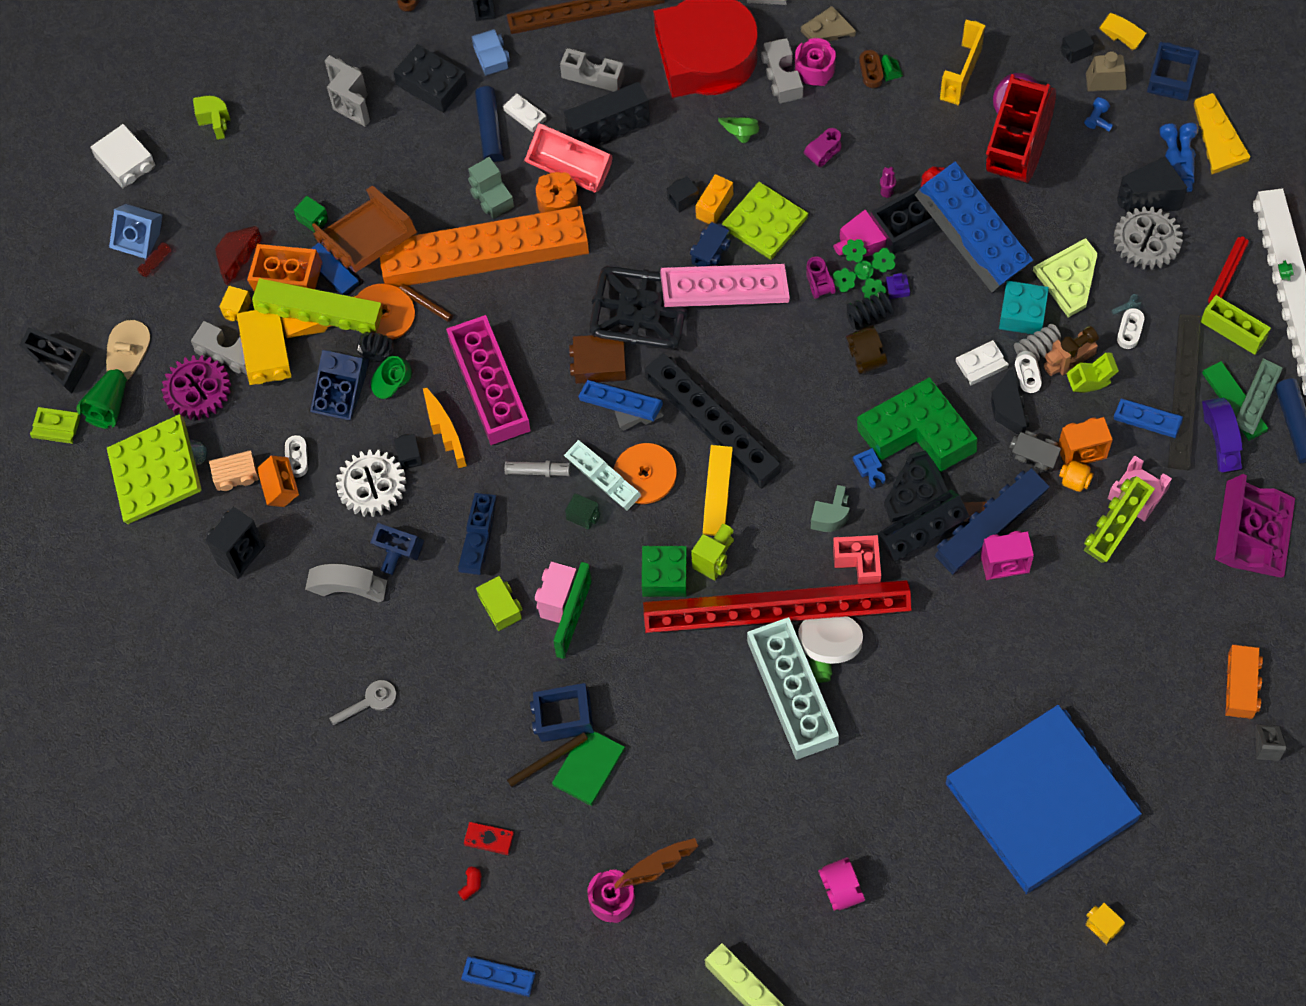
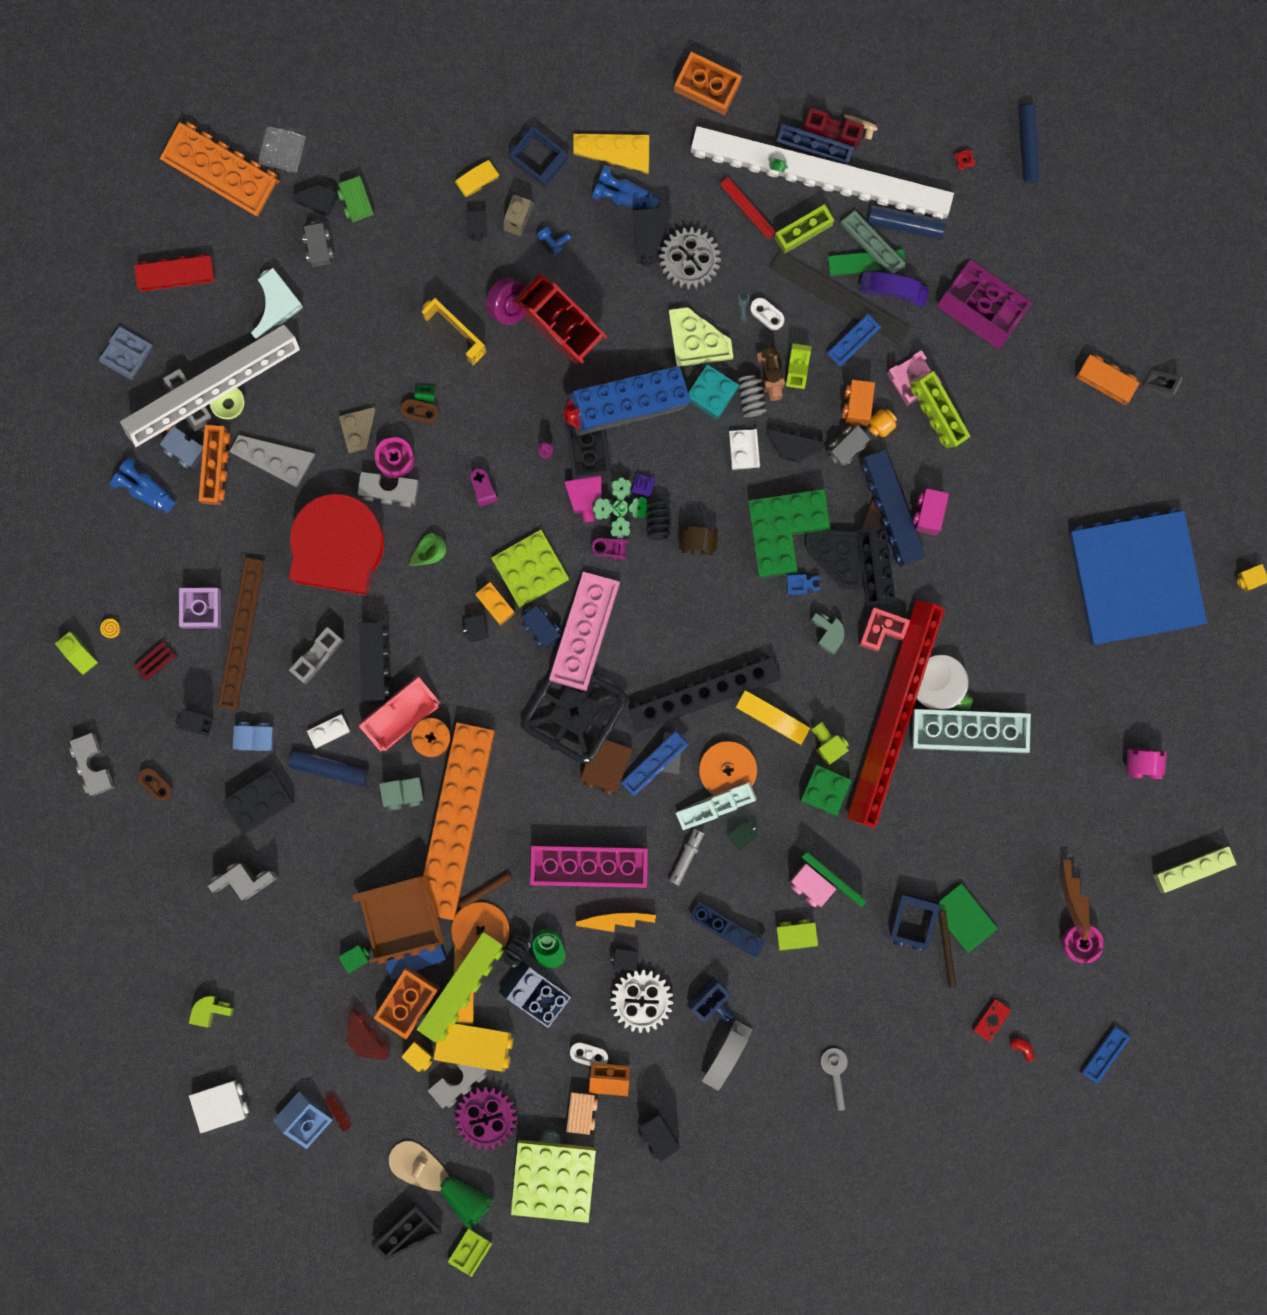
camera: 75 degrees left, 20 degrees up
(1028, 370) = (775, 417): white plate -> none

